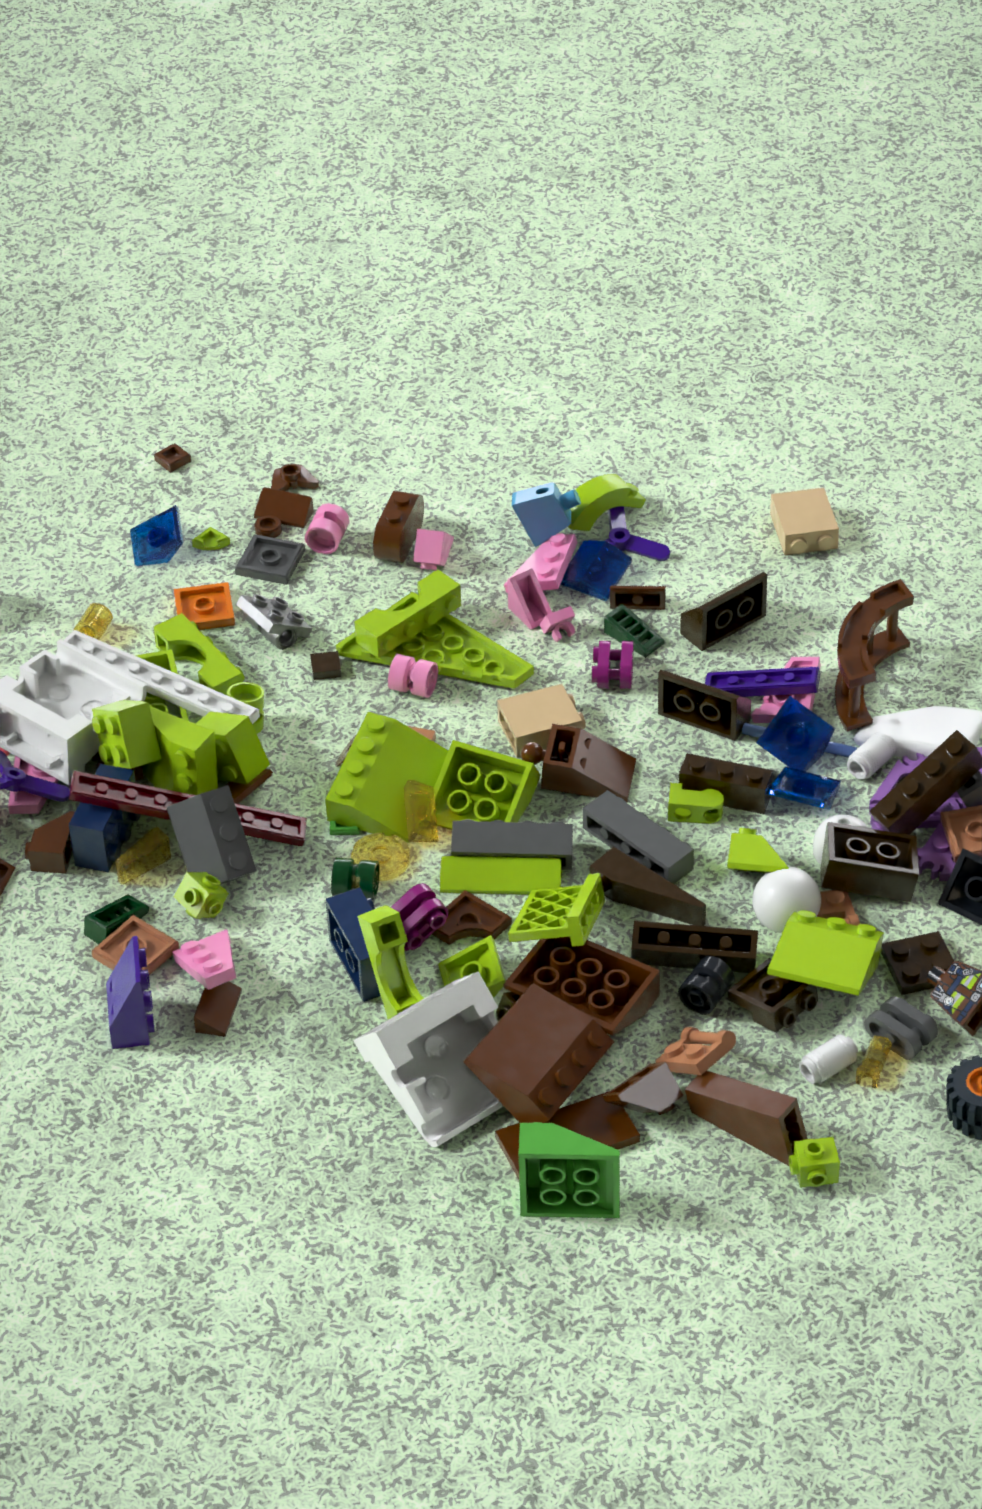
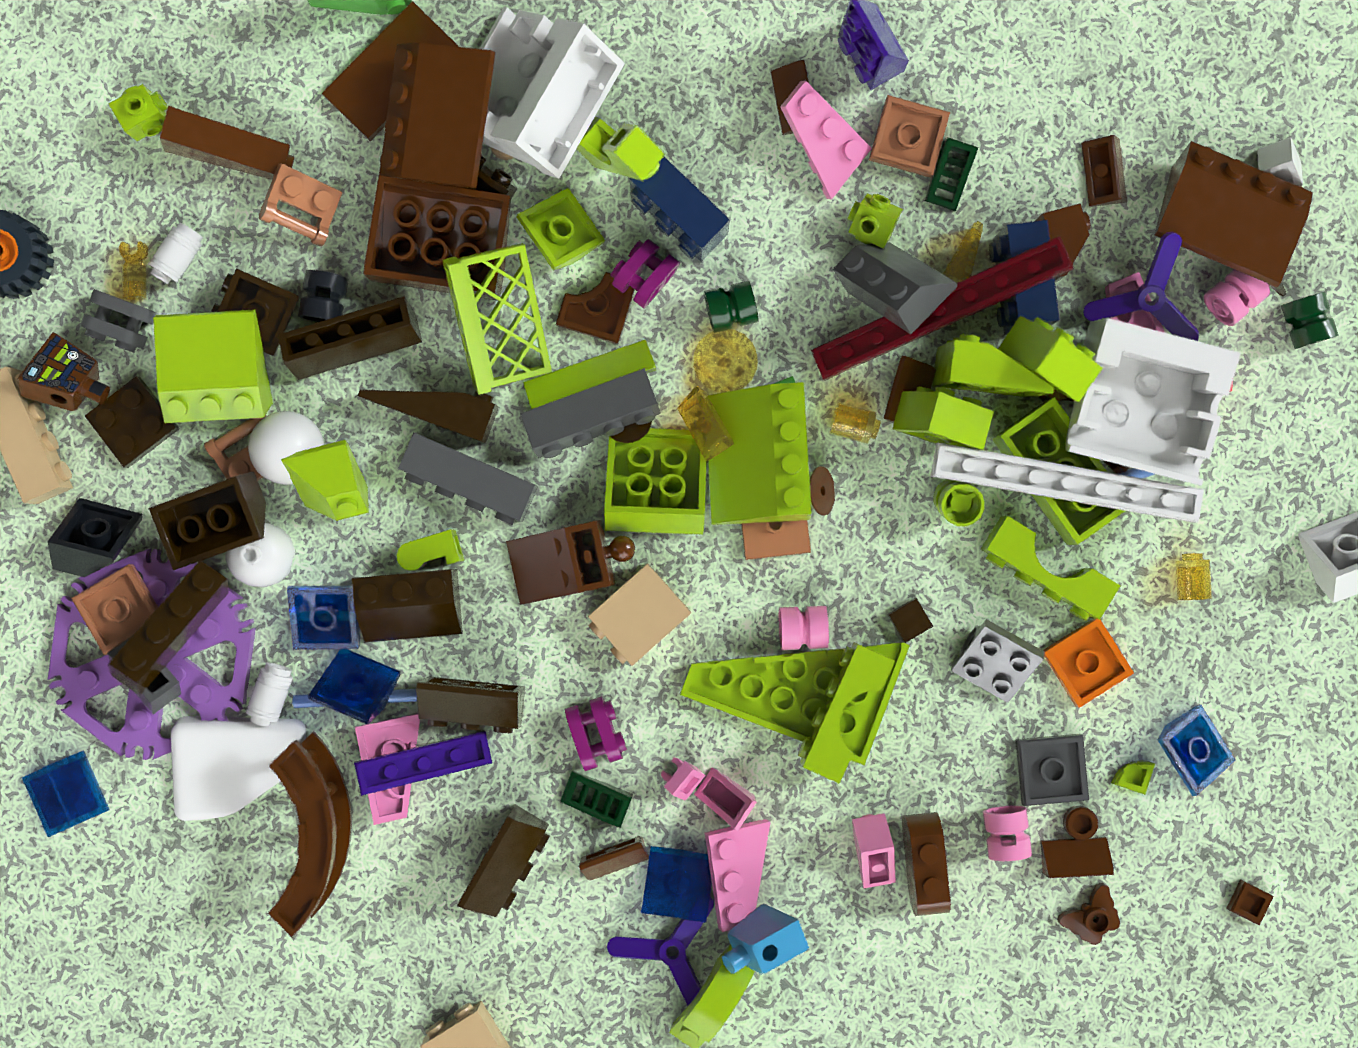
camera: 155 degrees right, 45 degrees up
(298, 783) = (854, 423): none -> clear yellow brick
(647, 1091) = (330, 129): slope -> none

